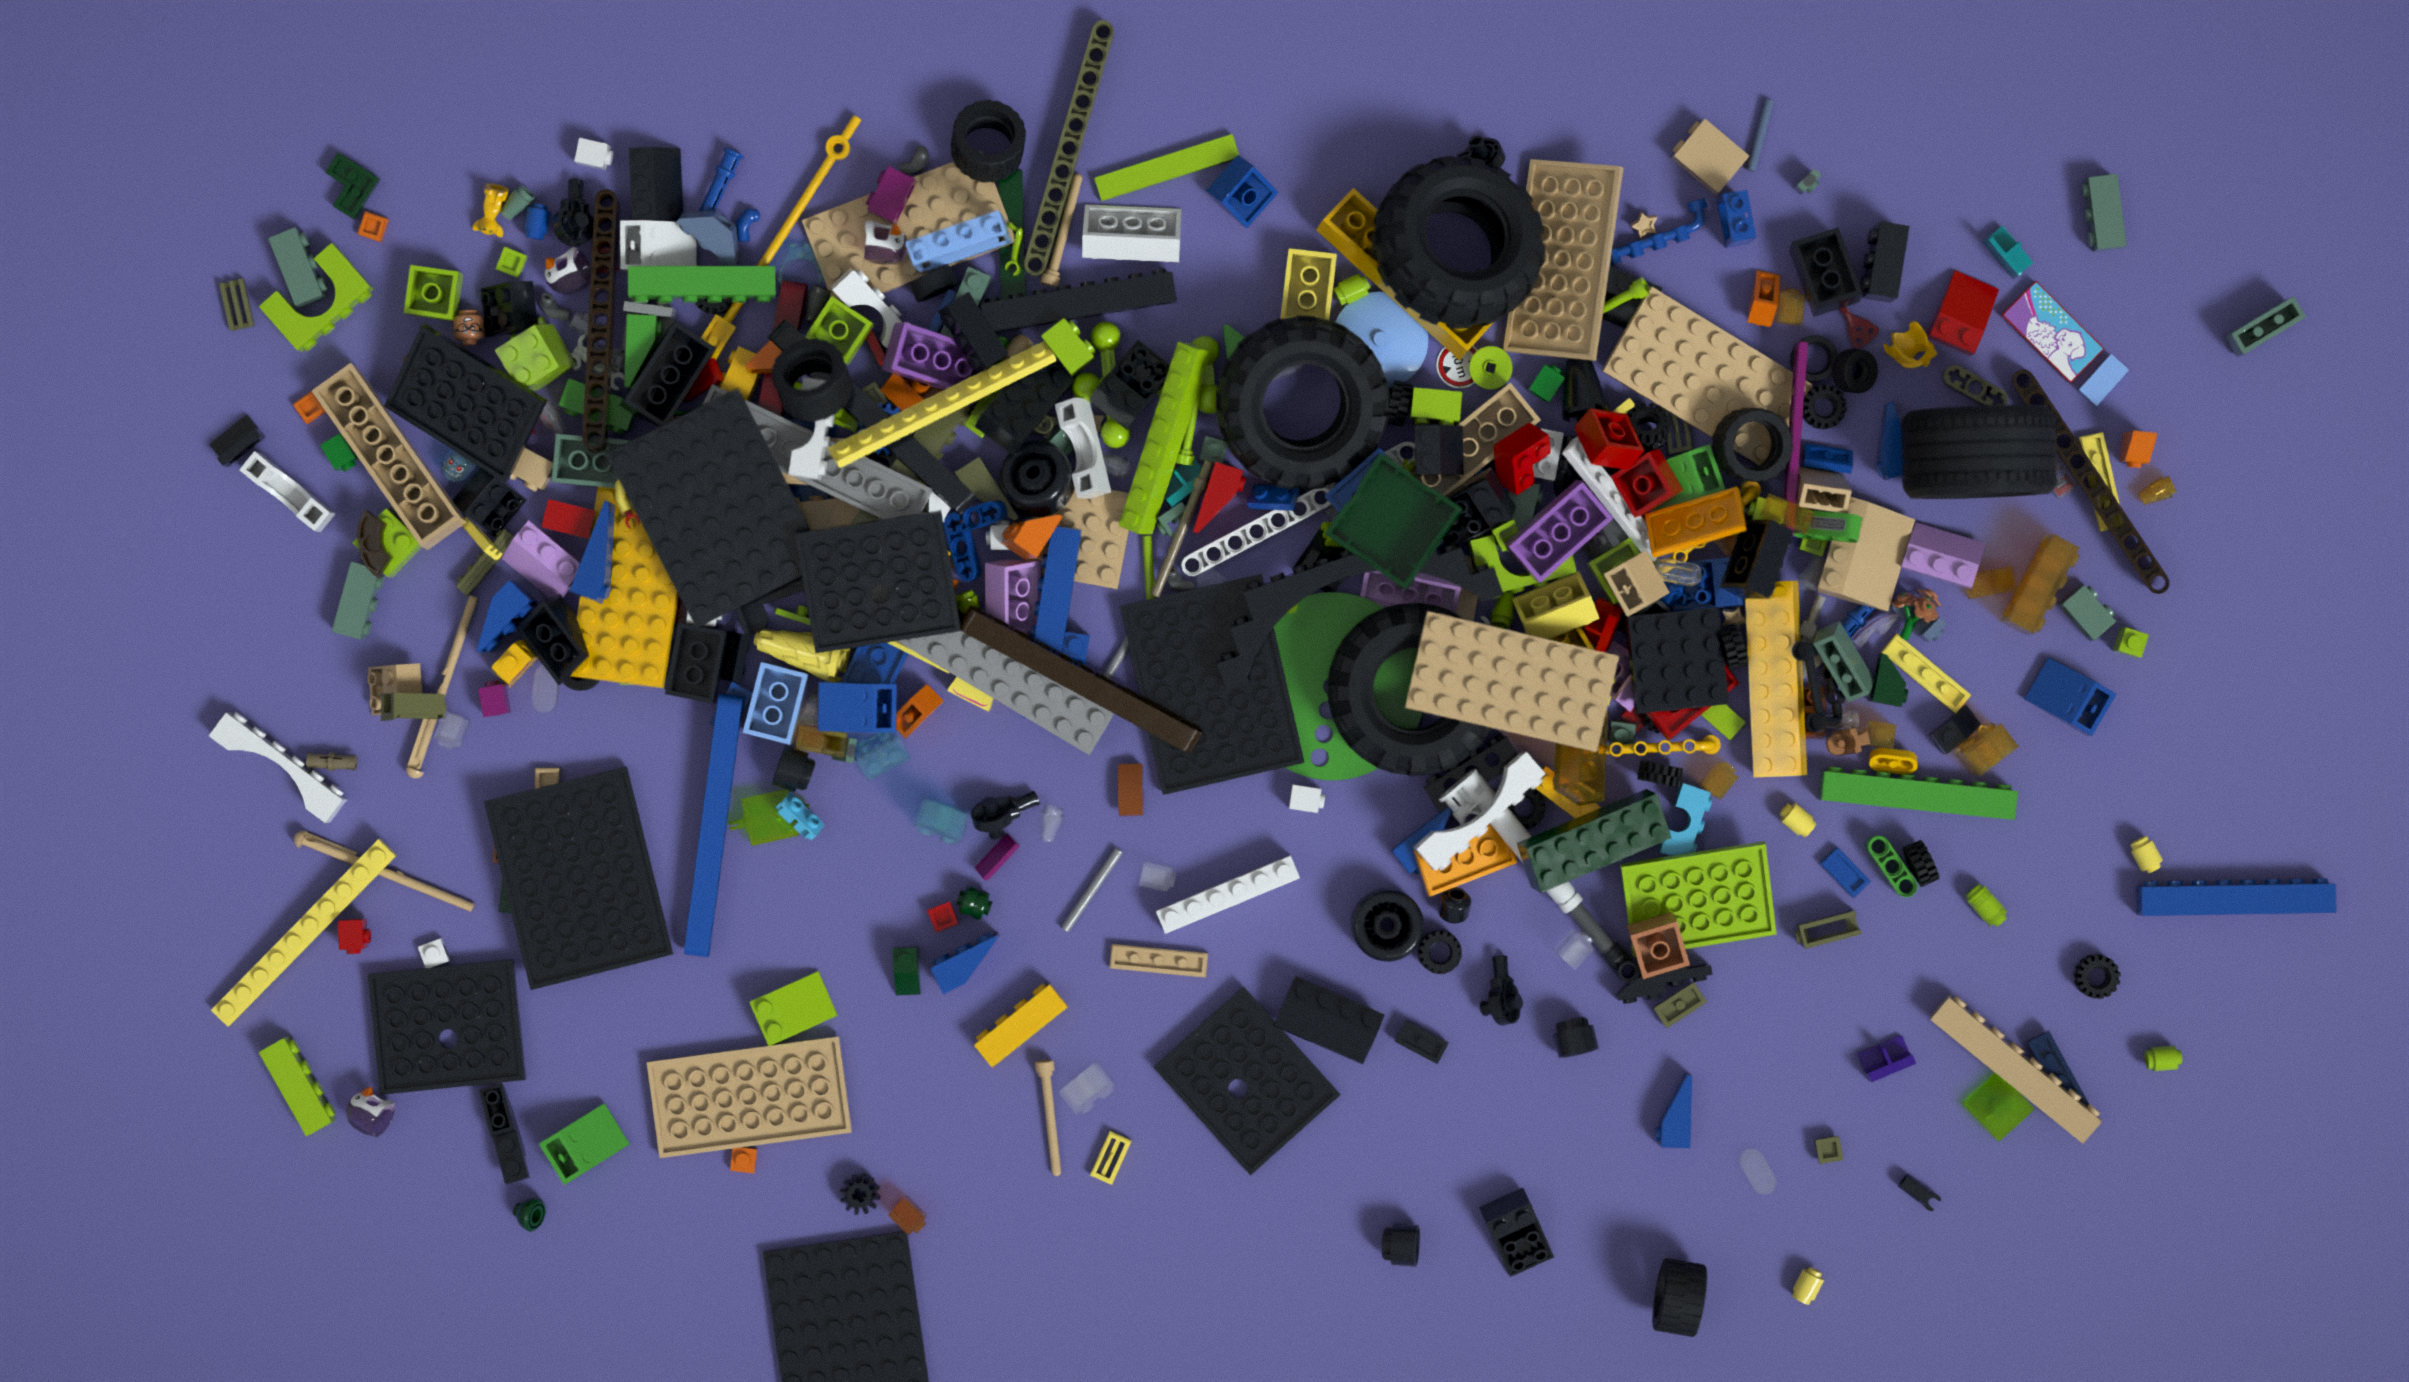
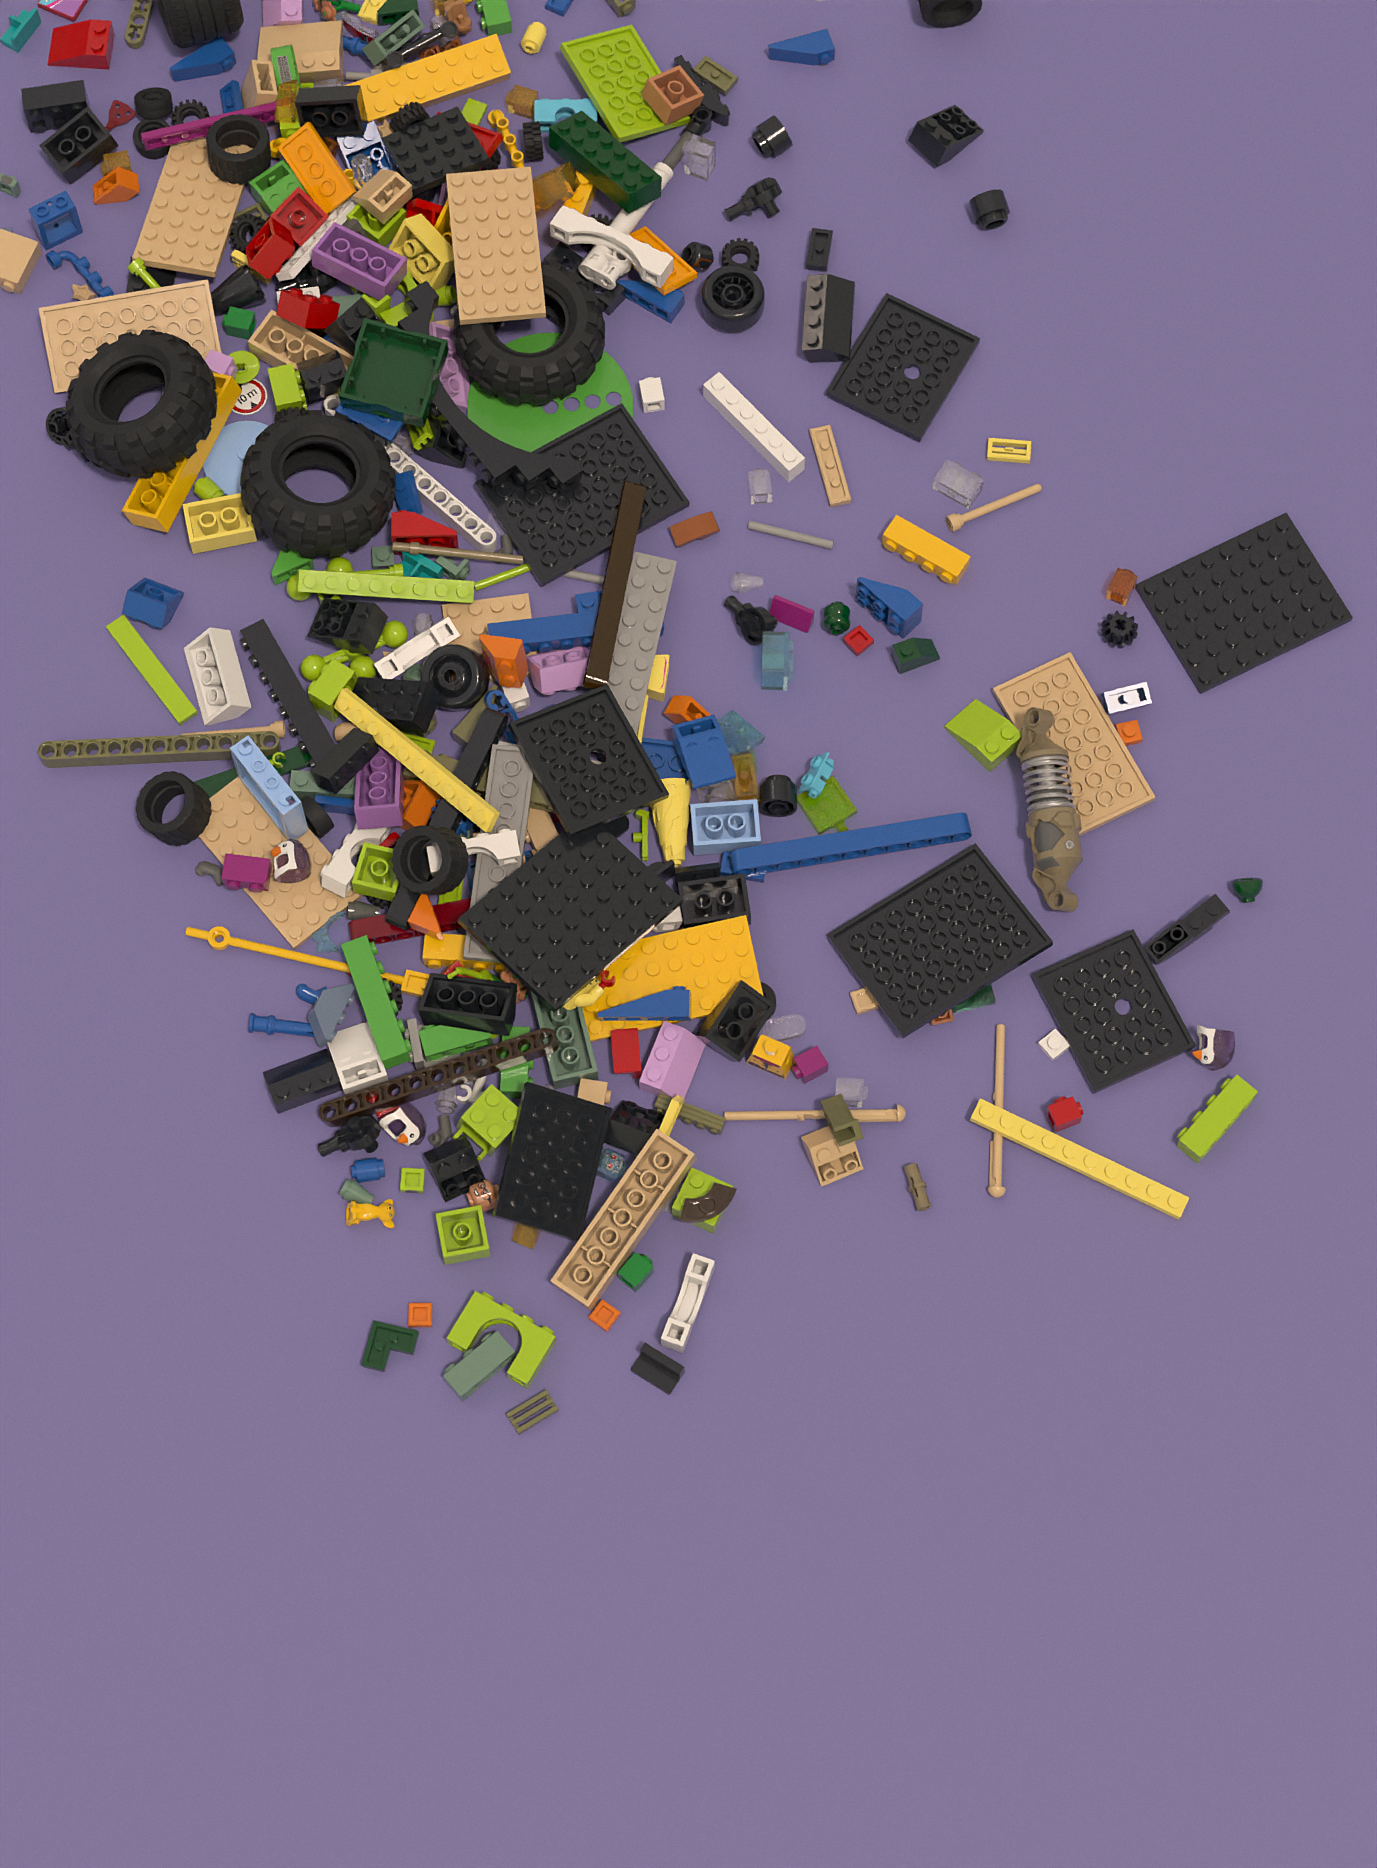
camera: 110 degrees left, 20 degrees down
(317, 795) = (953, 1187): white arch -> none
(357, 602) = (765, 1211): sand green brick -> none
(504, 612) = (731, 1076): blue slope -> none
(584, 1144) = (1169, 862): bright green slope -> none
(593, 154) = (291, 1141): white brick -> none
(665, 1040) = (1052, 817): none -> dark tan piece
(697, 401) = (484, 974): none -> lime piece
(776, 1169) = (1126, 698): none -> brick
(1491, 343) = (221, 363): none -> lavender brick
(1908, 344) = (120, 78): yellow helmet -> none

